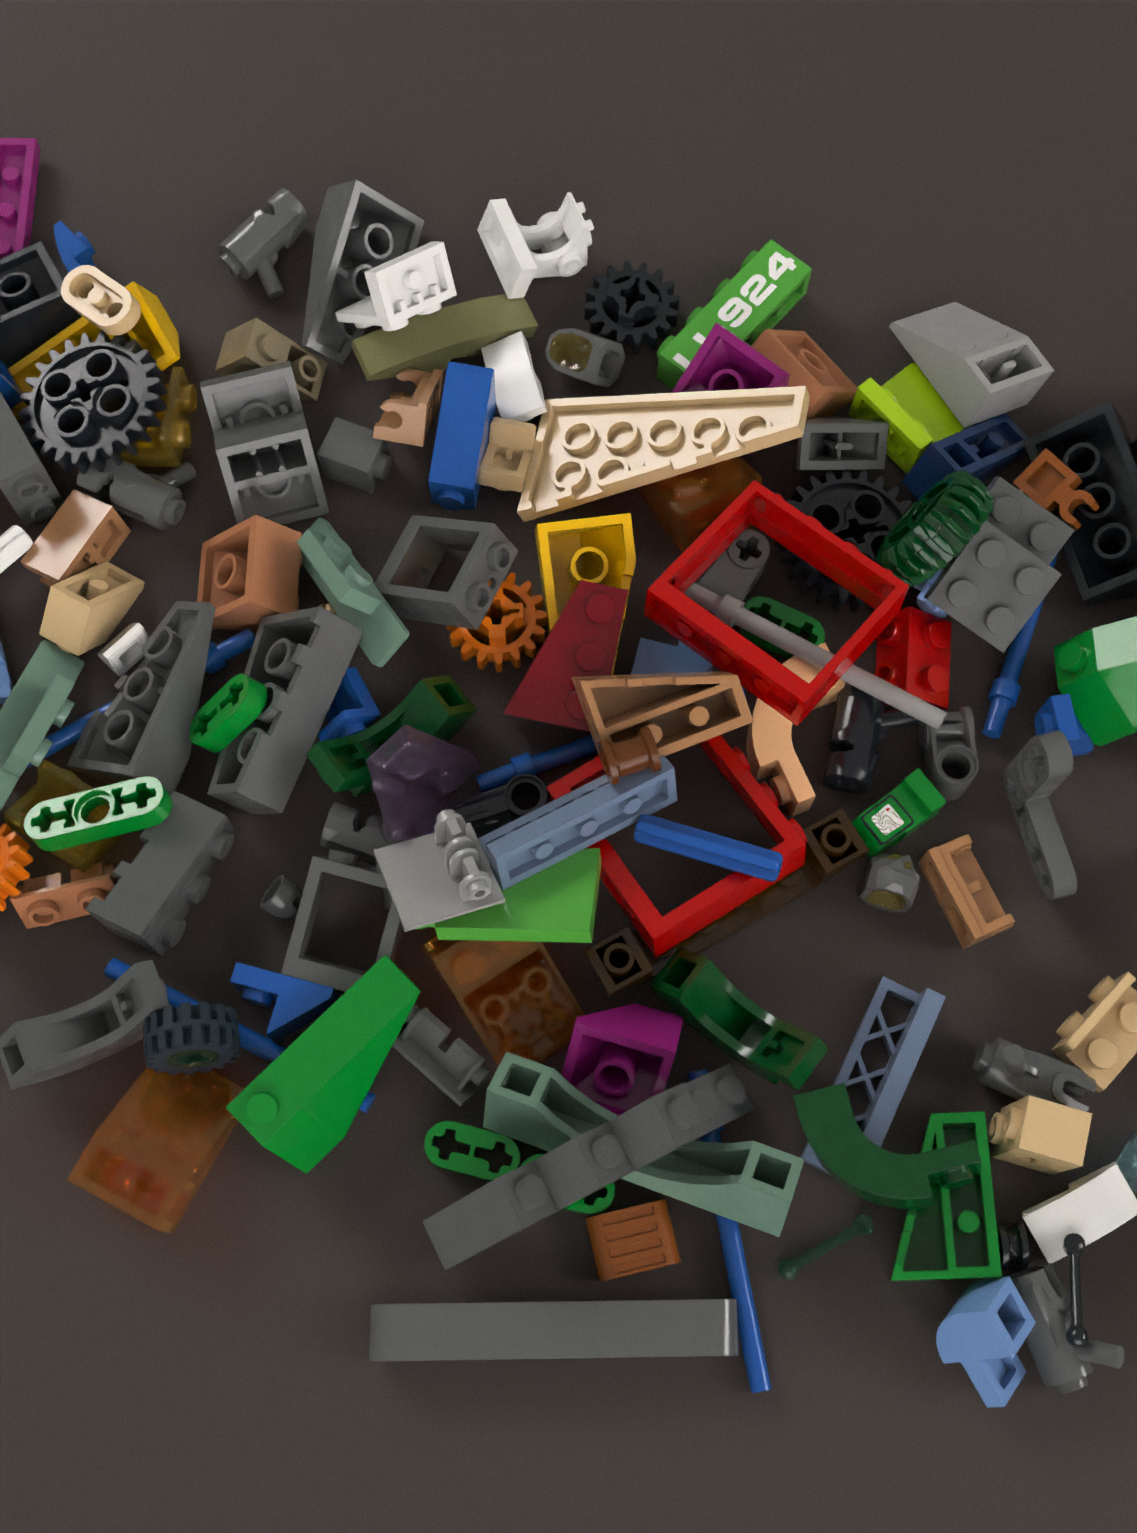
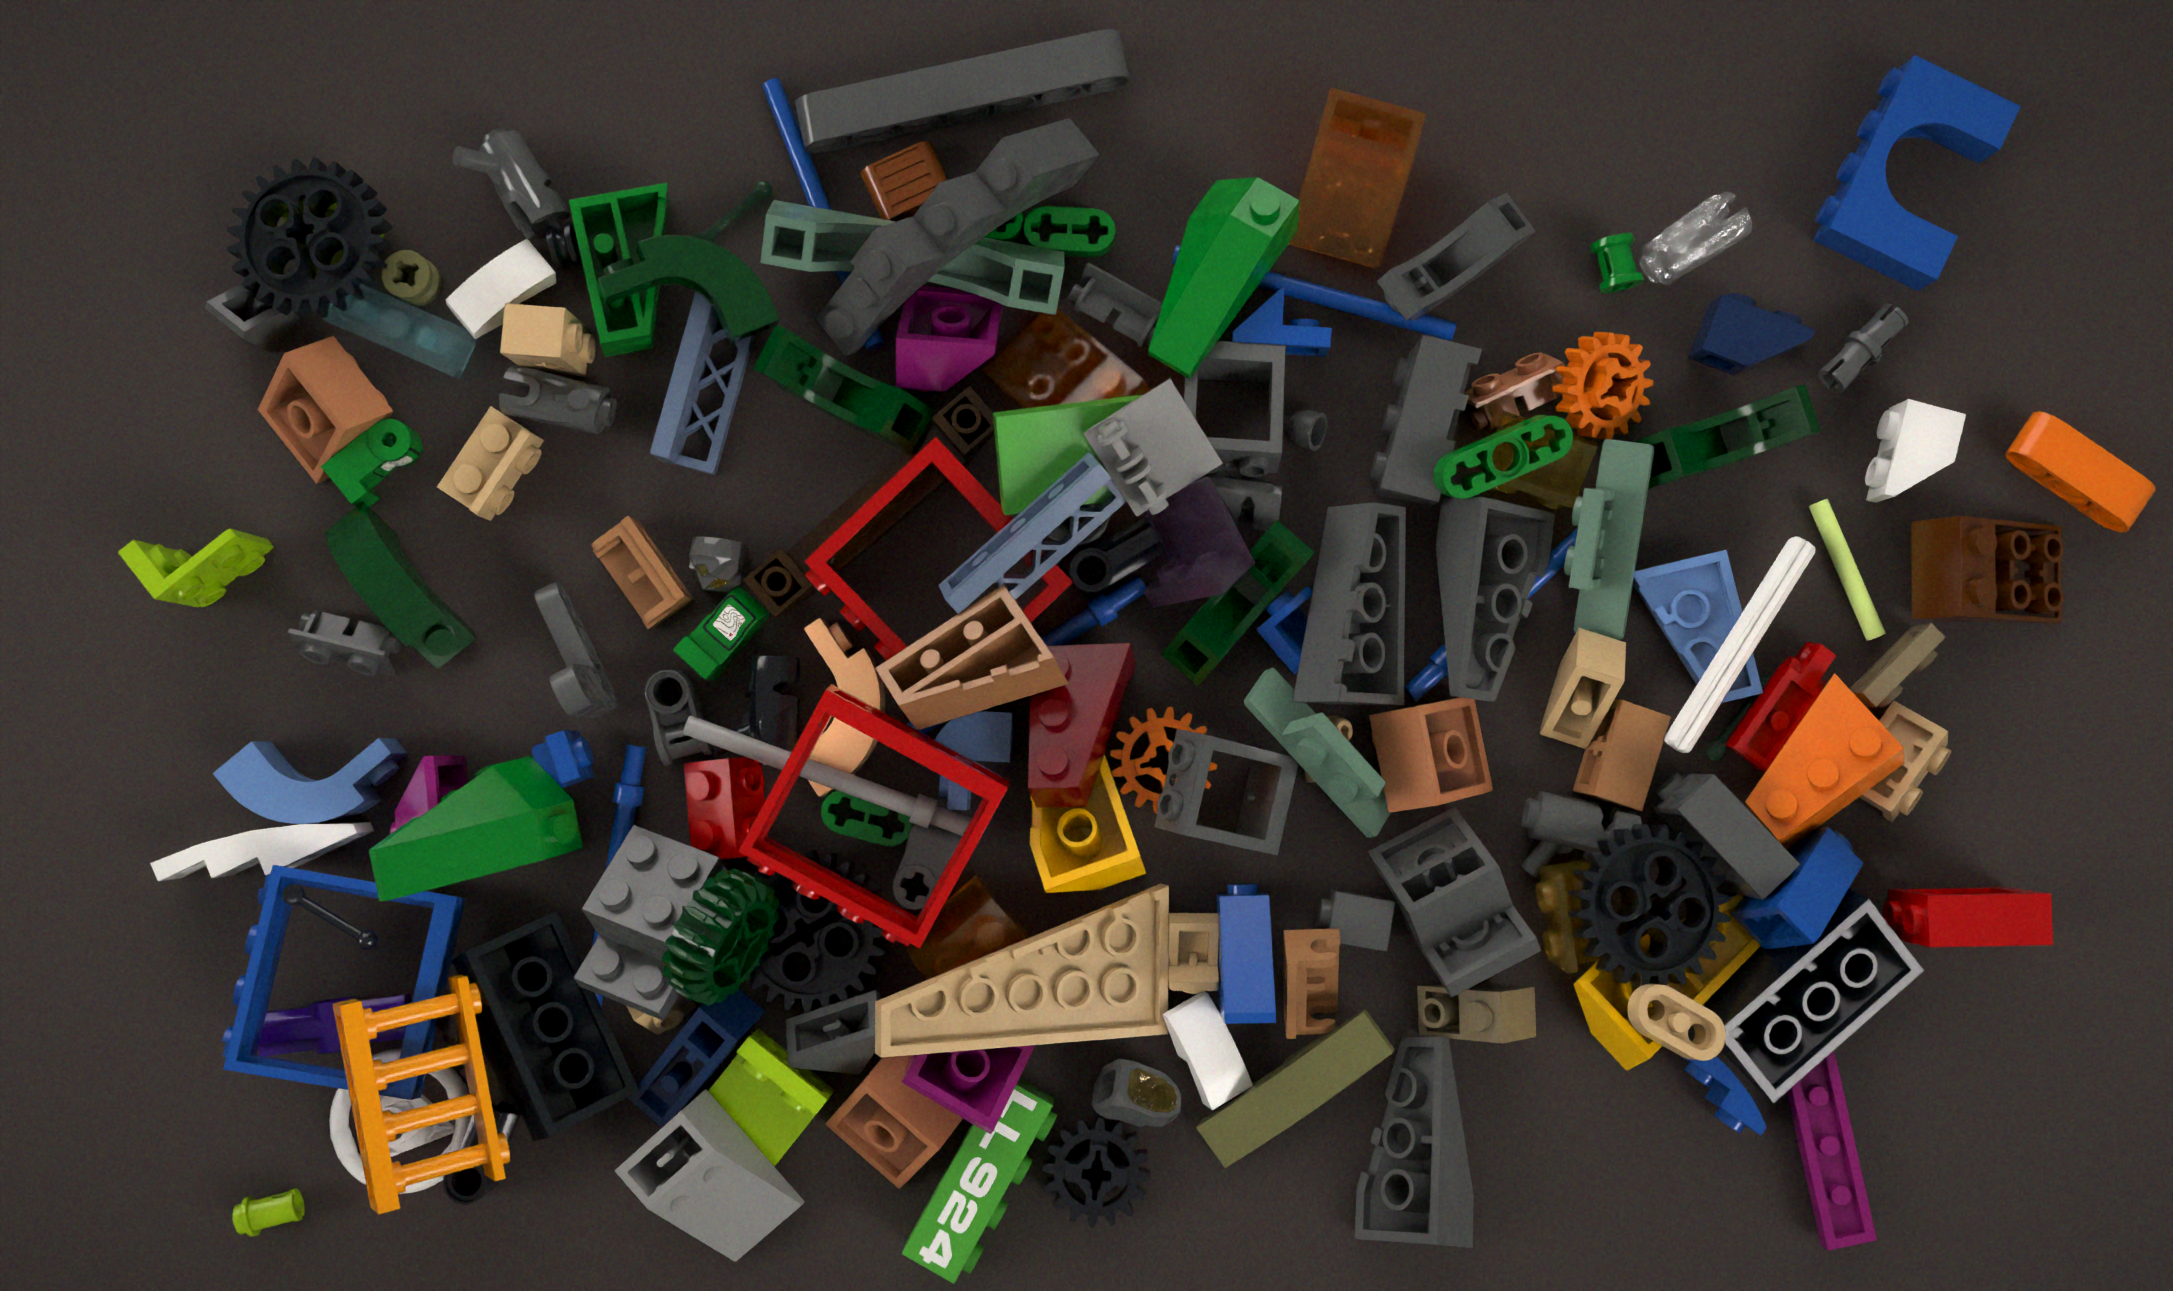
camera: 175 degrees right, 15 degrees up
(125, 648) = (1538, 655): white slope -> none
(191, 1038) = (1350, 262): black wheel -> none
(228, 713) = (1414, 578): green beam -> none
(260, 238) = (1533, 1167): dark grey piece -> none
(403, 288) = (1353, 1114): white bracket -> none
(559, 235) = (1191, 1244): white tile -> none
(629, 755) = (990, 595): reddish brown bush -> none
(708, 847) = (899, 536): blue axle -> none
(985, 1335) = (574, 155): medium blue brick -> none
(1053, 485) = (603, 1031): dark orange plate -> none
(1074, 1247) = (496, 169): black hinge -> none

